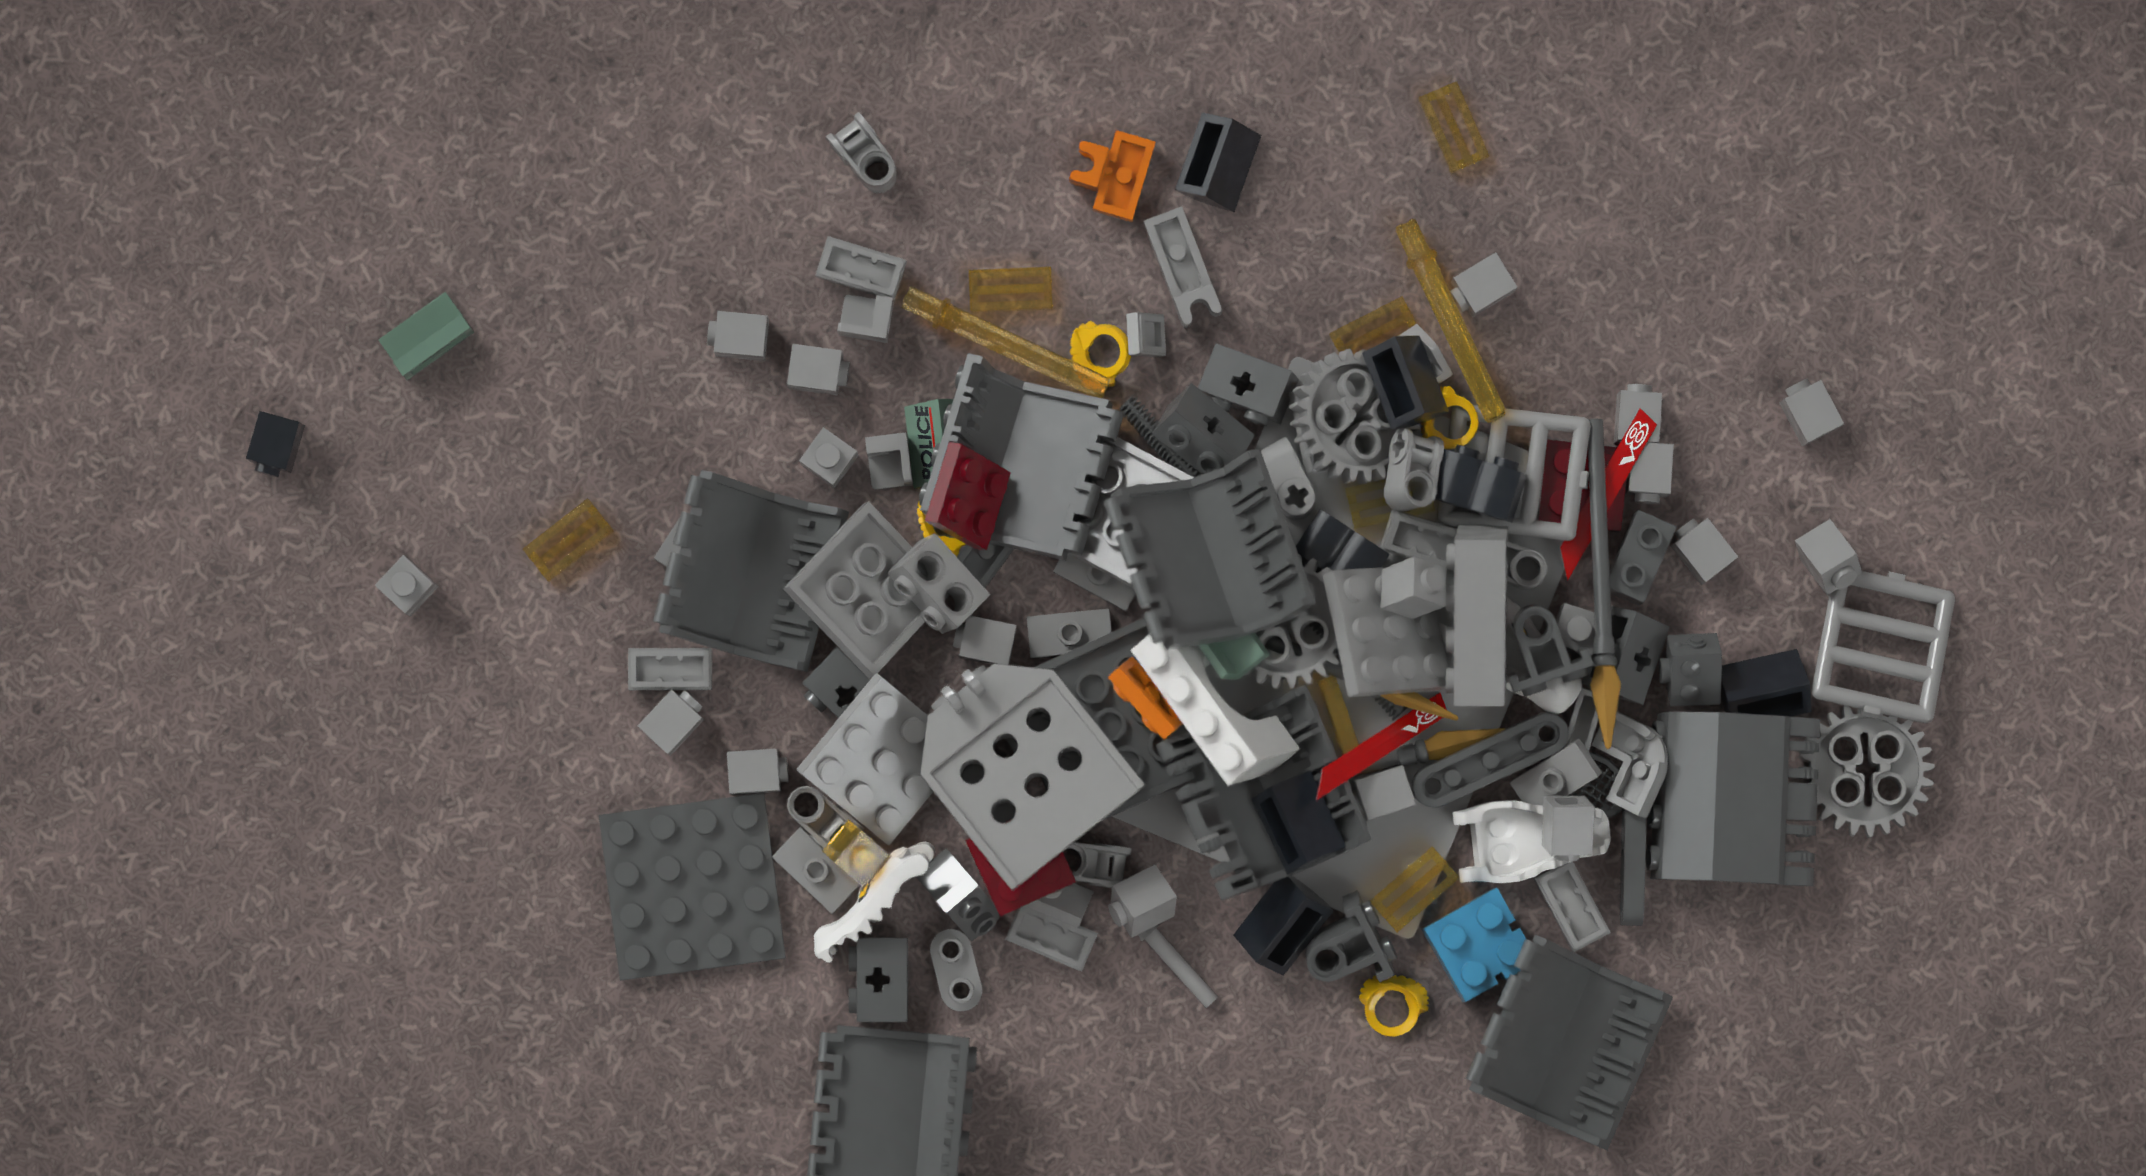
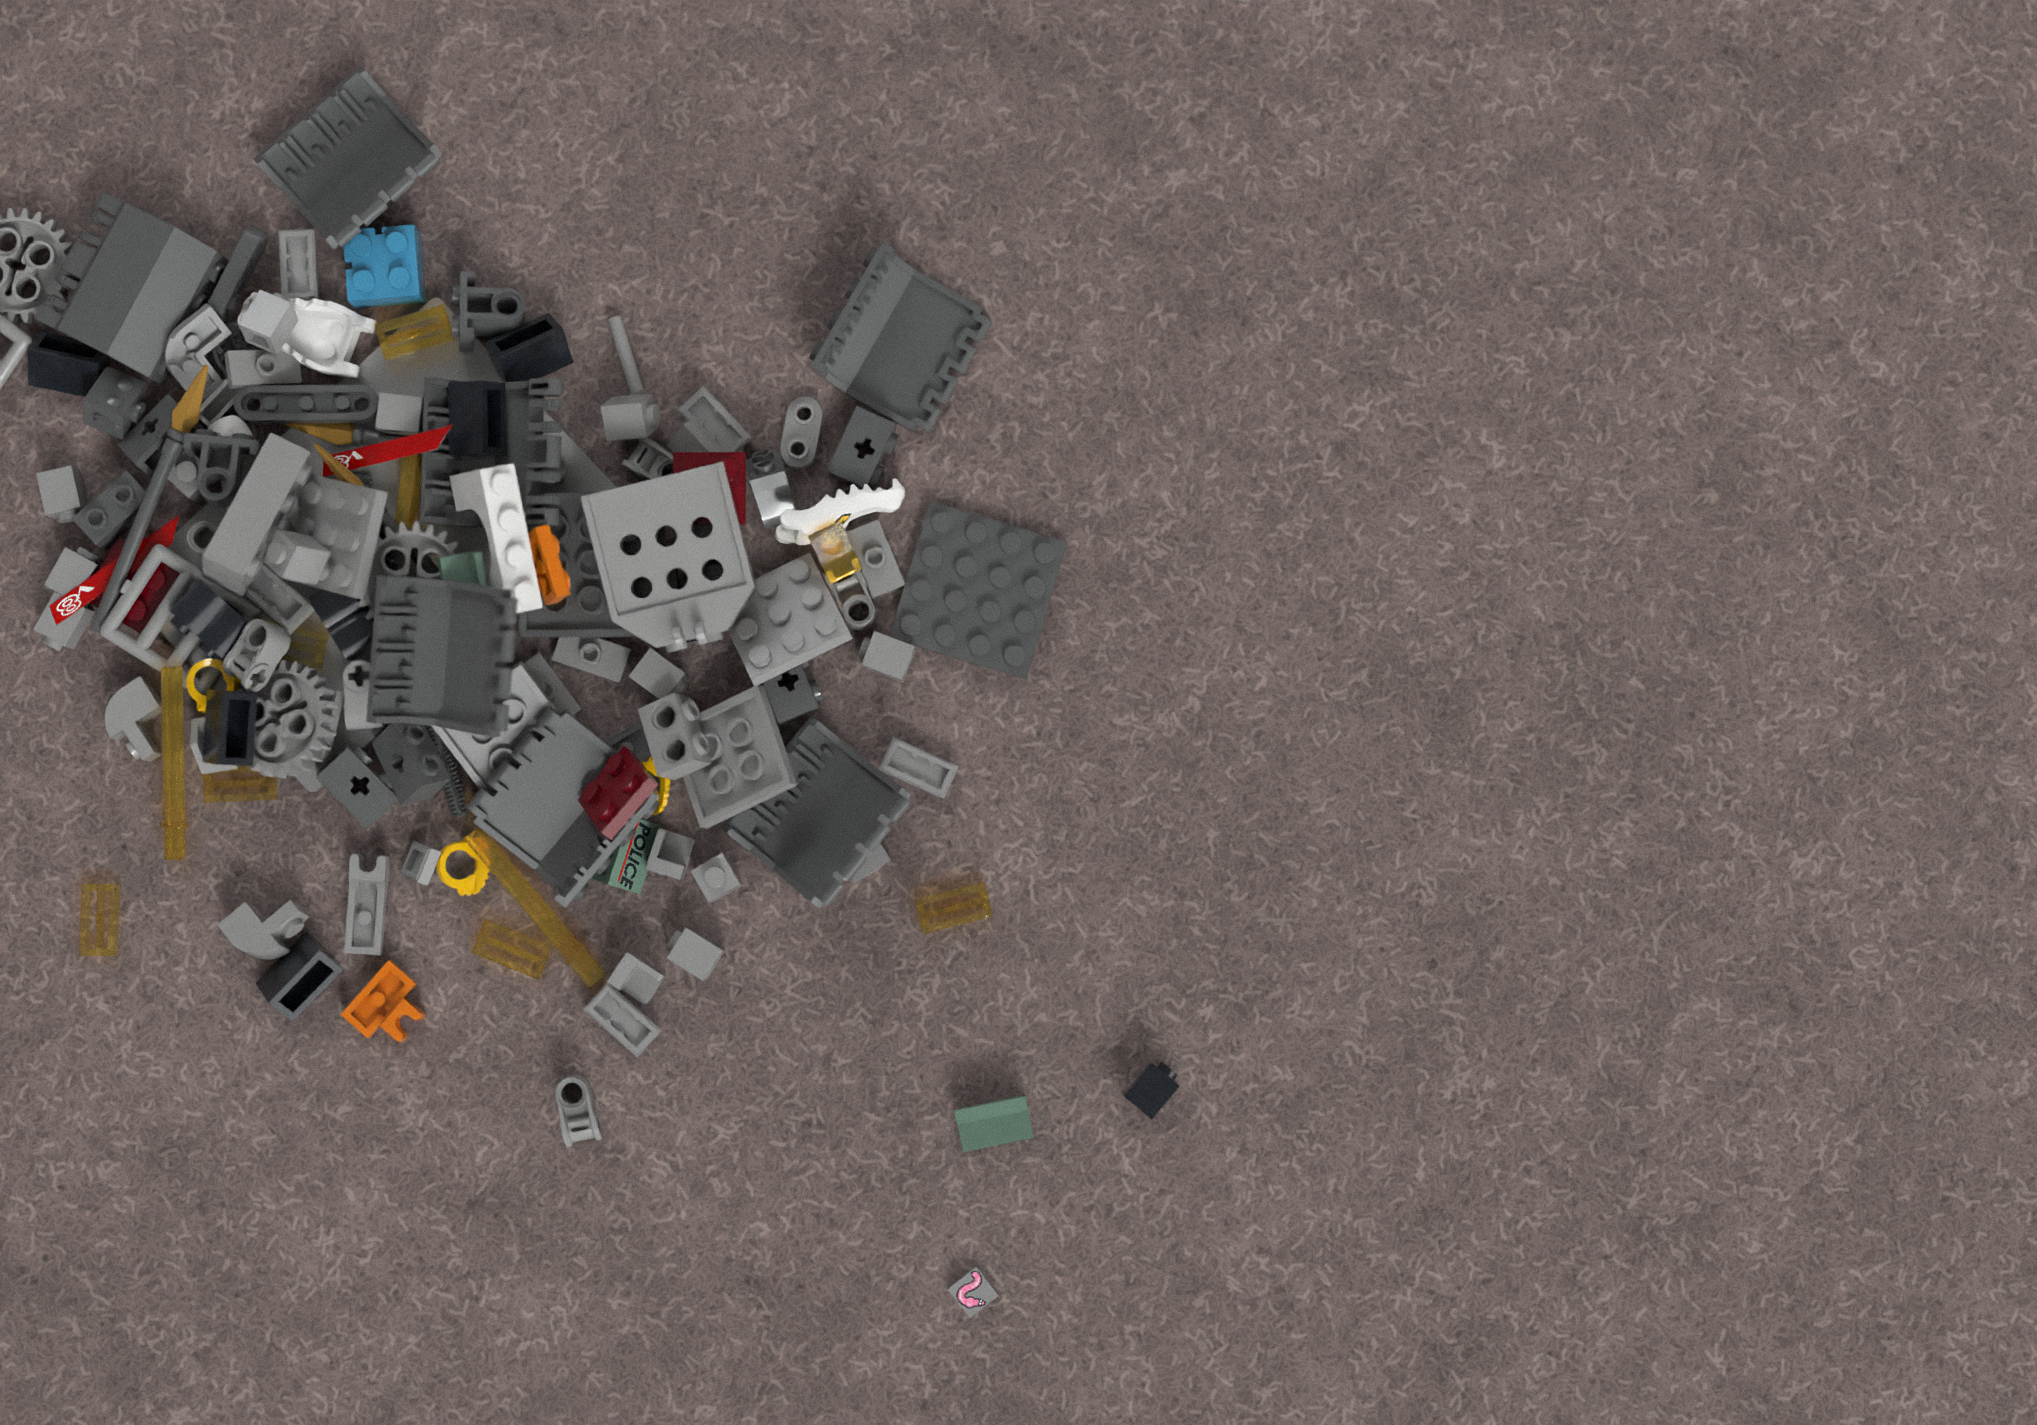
camera: 160 degrees left, 0 degrees up
(370, 153) = (973, 1291): none -> light grey tile
(406, 585) = (1097, 927): light grey brick -> none
(672, 721) = (934, 725): light grey brick -> none
(739, 335) = (743, 1008): light grey brick -> none
(1277, 182) = (260, 936): none -> light grey brick
(1414, 994) = (454, 253): yellow piece -> none
(1482, 285) = (135, 781): light grey brick -> none
(1524, 354) = (128, 712): none -> light grey brick

